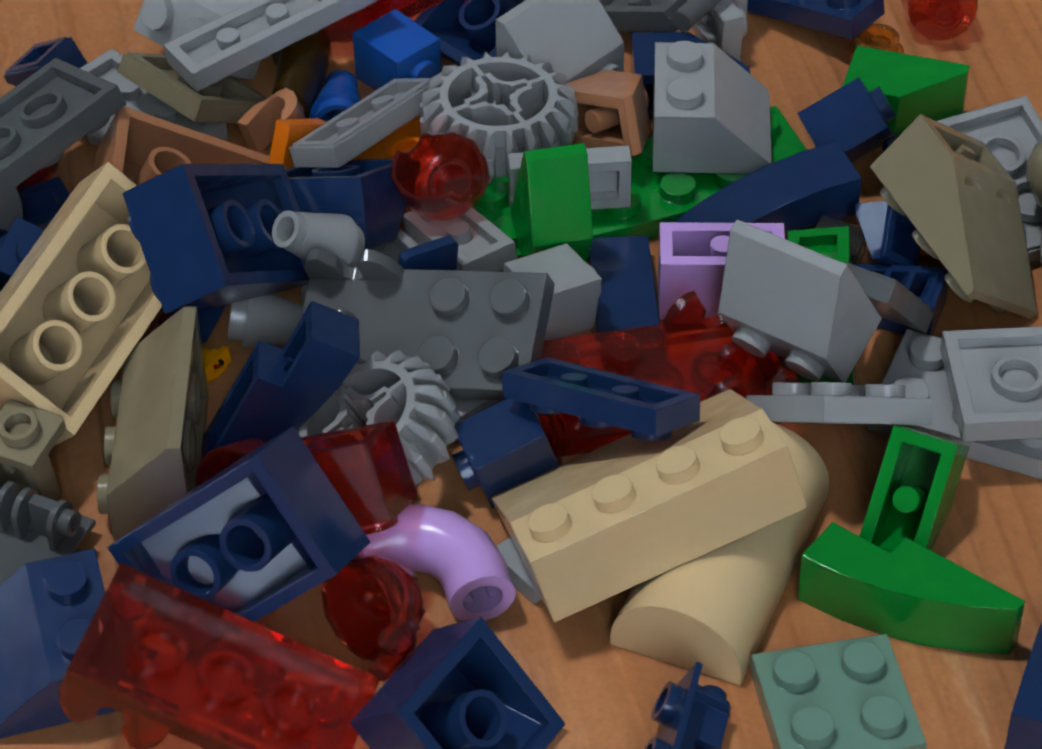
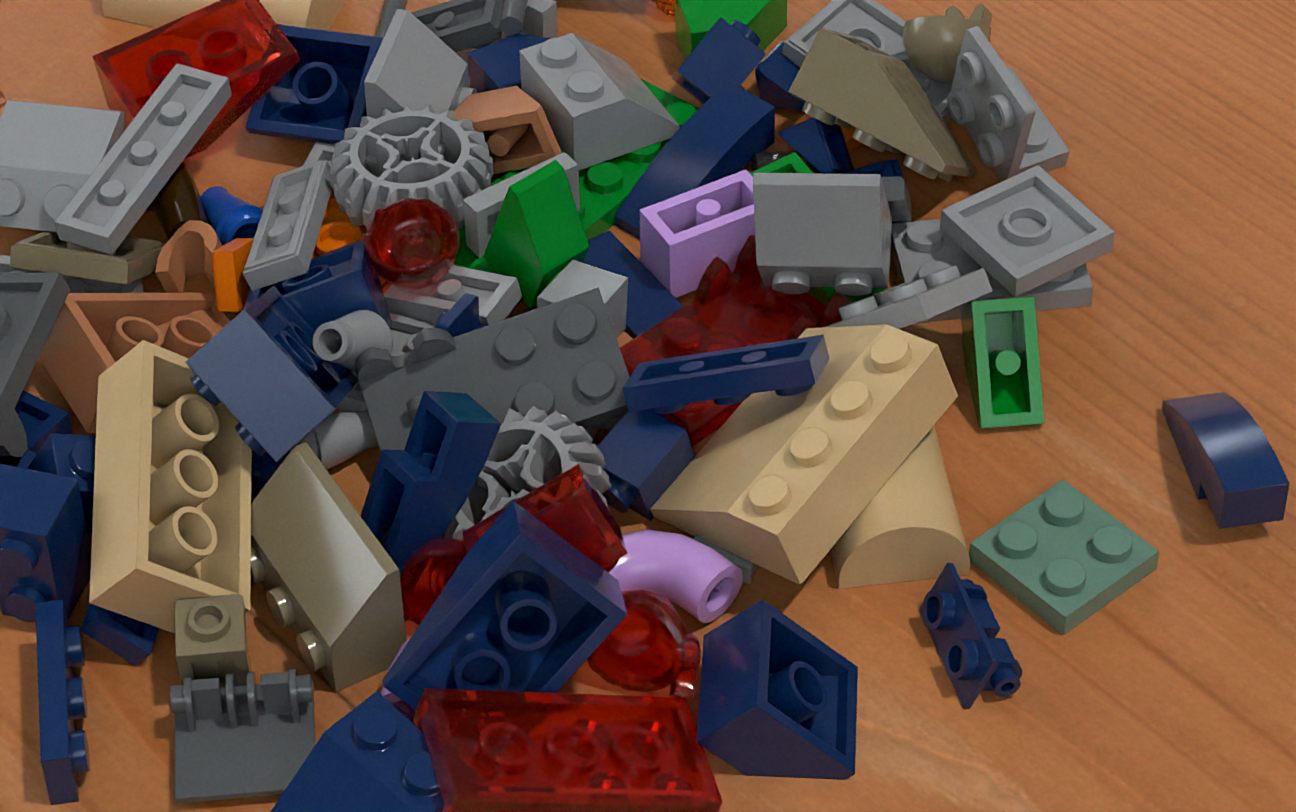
camera: 30 degrees left, 0 degrees up
(394, 50) = (251, 152): blue brick -> none
(908, 594) = (1058, 439): green slope -> none

